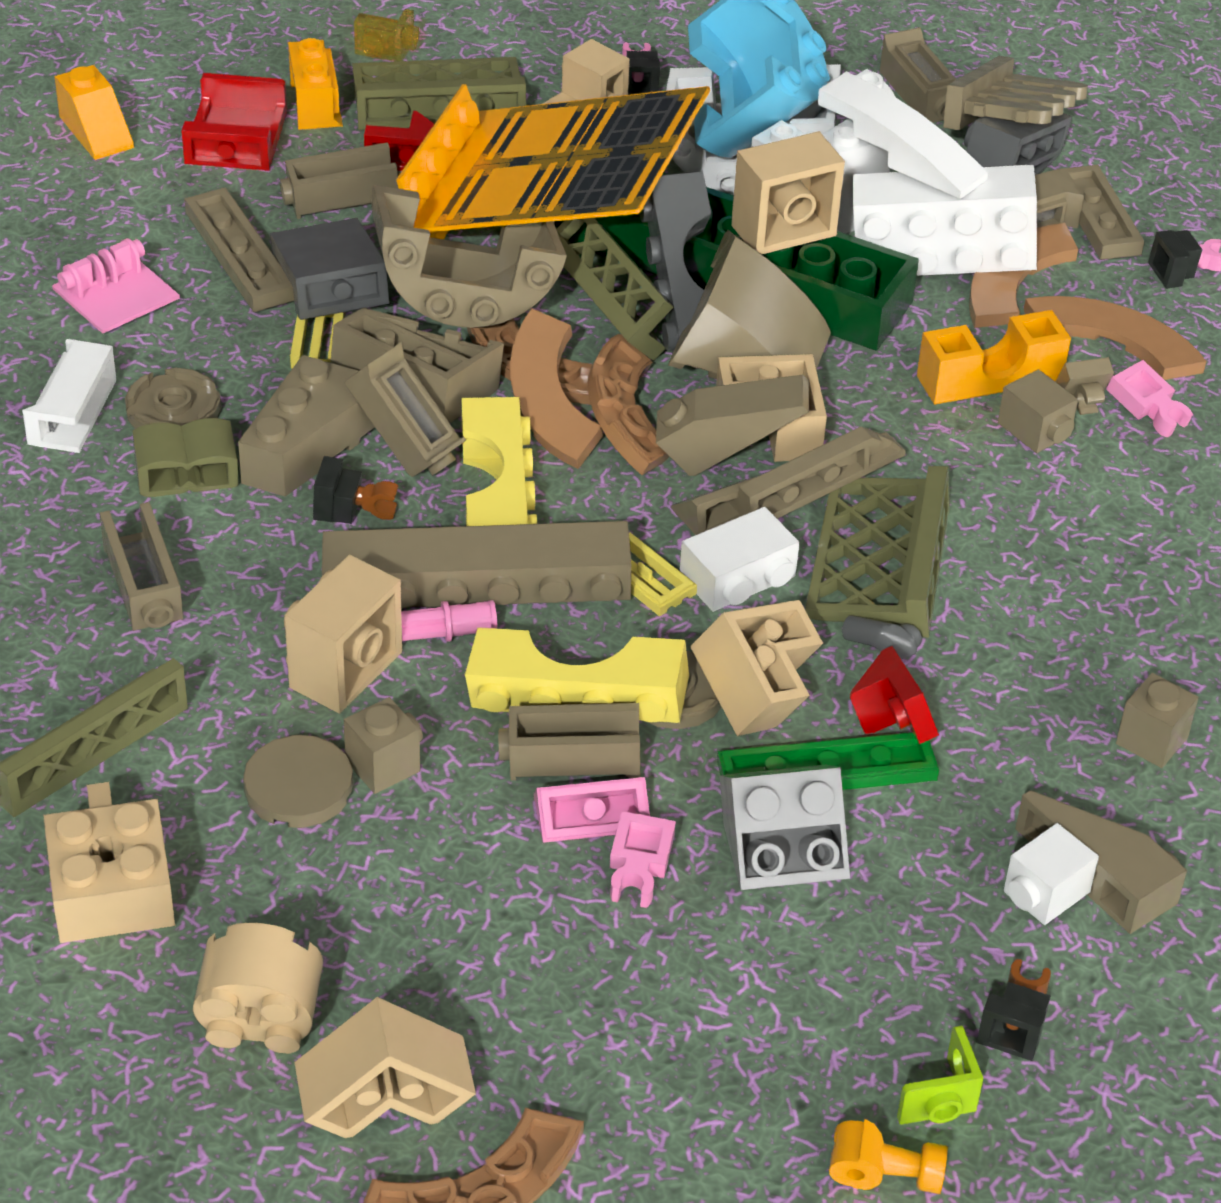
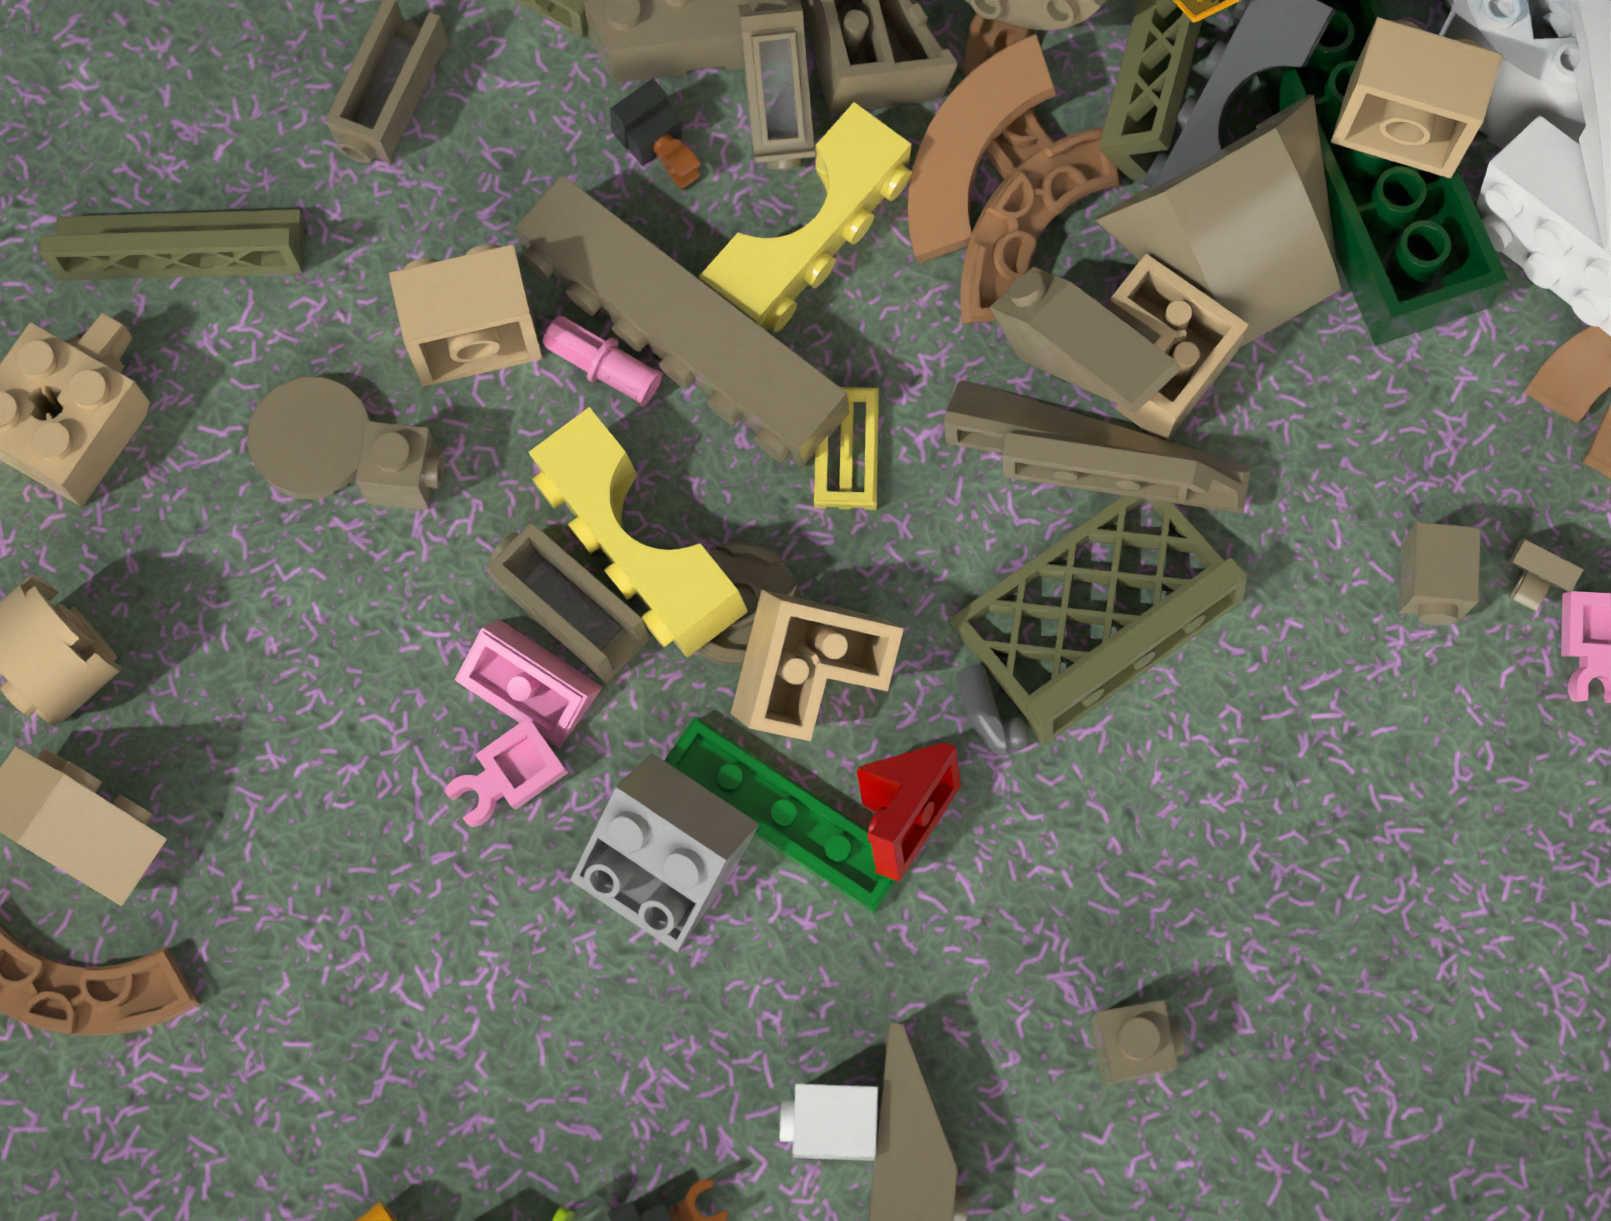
camera: 45 degrees right, 30 degrees up
(739, 558) = (938, 512): white brick -> none
(958, 369) = (1507, 486): light orange arch -> none

